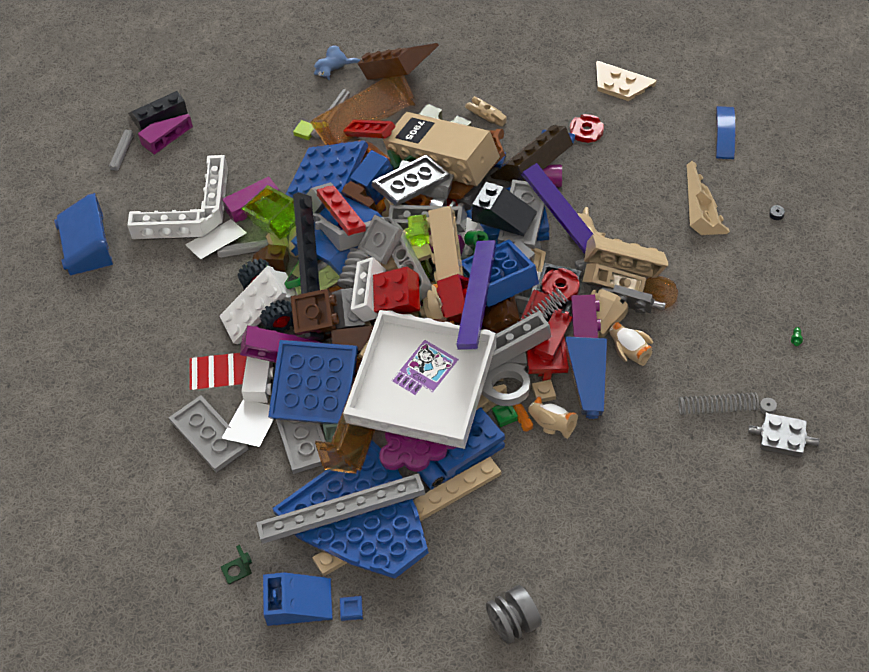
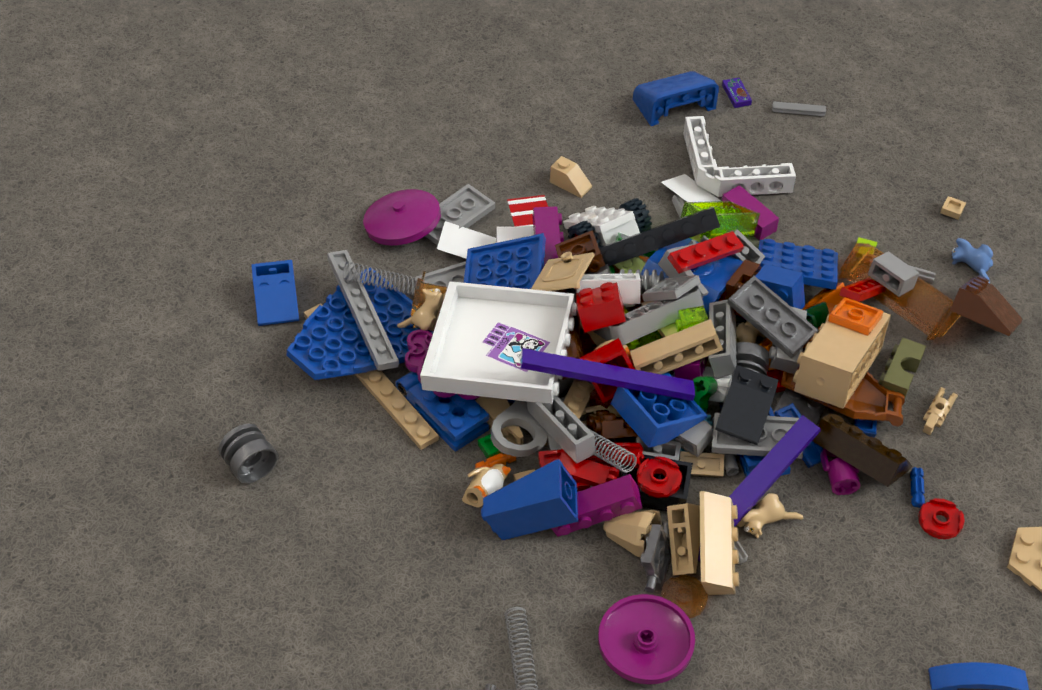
camera: 80 degrees right, 5 degrees down
(78, 192) = (736, 92): none -> dark purple tile
(159, 110) = (856, 127): black slope -> none
(162, 133) = (827, 134): magenta slope -> none
(176, 332) = (569, 177): none -> tan slope
(206, 478) = (402, 217): none -> magenta dish
(242, 562) = (314, 252): dark green bracket -> none
(270, 66) = (953, 208): none -> tan plate
(300, 477) = (377, 278): none -> light grey piece
(350, 321) = (563, 275): none -> tan container
(351, 108) = (893, 273): none -> light grey brick
(351, 608) = (269, 338): blue tile -> none
(363, 447) = (428, 313): none -> tan animal
(412, 129) = (855, 316): none -> orange tile
(631, 344) = (592, 557): animal -> none
(702, 206) = (819, 648): tan wedge -> none
(706, 315) = (646, 639): none -> magenta dish

